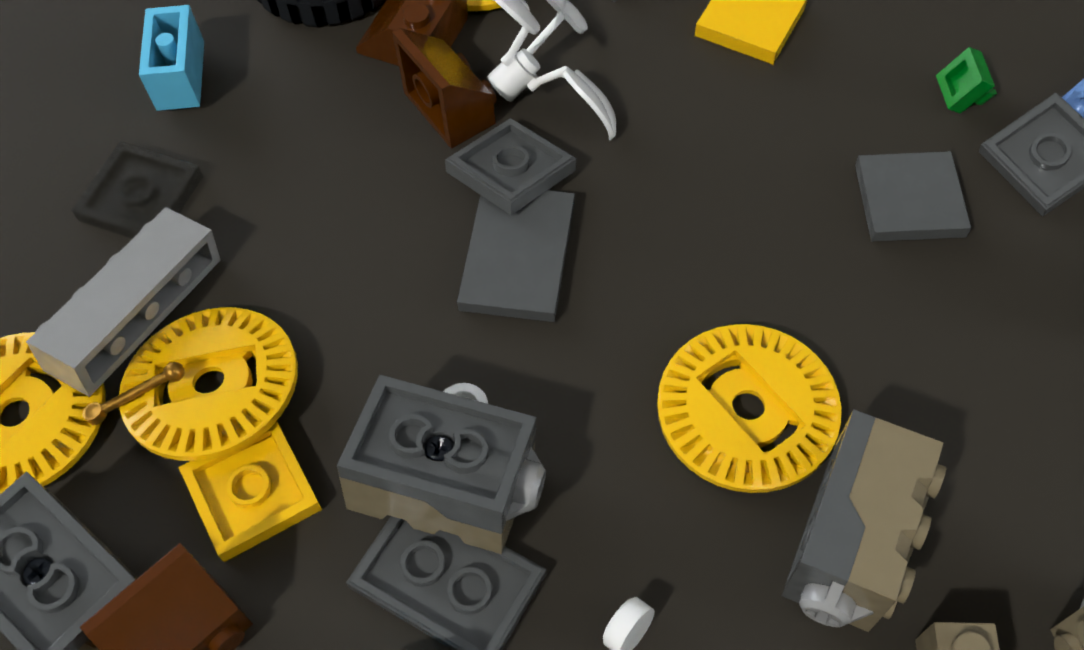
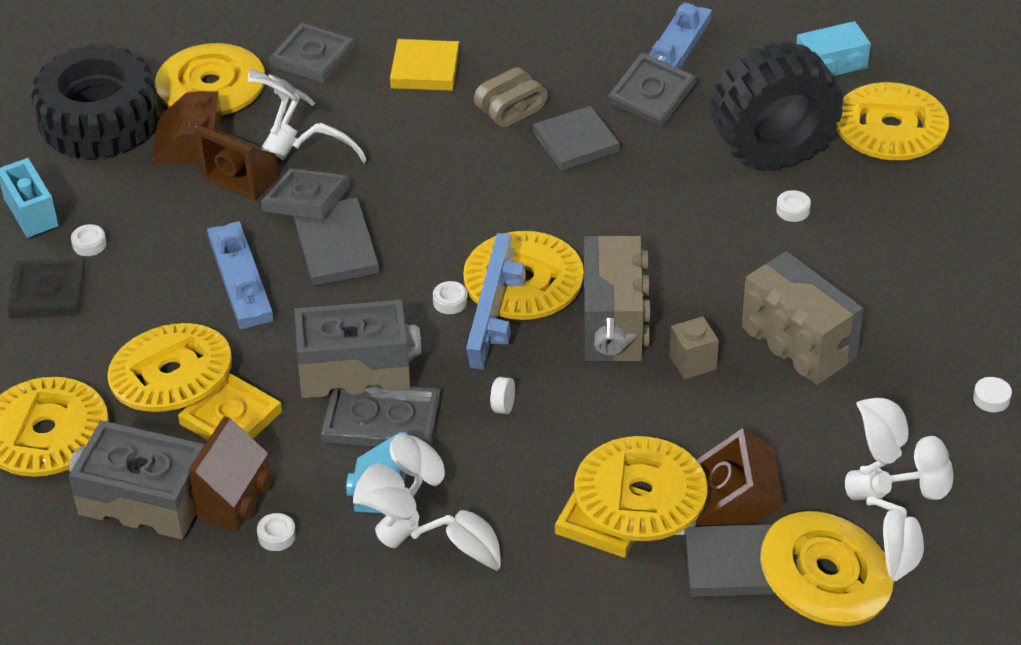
camera: 25 degrees left, 15 degrees down
(96, 412) = (105, 403): pearl gold hinge -> none
(124, 301) = (88, 338): light grey brick -> none
(223, 139) = (88, 240): none -> white tile
(373, 262) = (240, 275): none -> medium blue hinge
(630, 404) = (450, 297): none -> white tile
(650, 489) = (486, 327): none -> medium blue hinge
(844, 102) = (510, 97): none -> dark tan brick
(966, 81) = (584, 63): green tile -> none

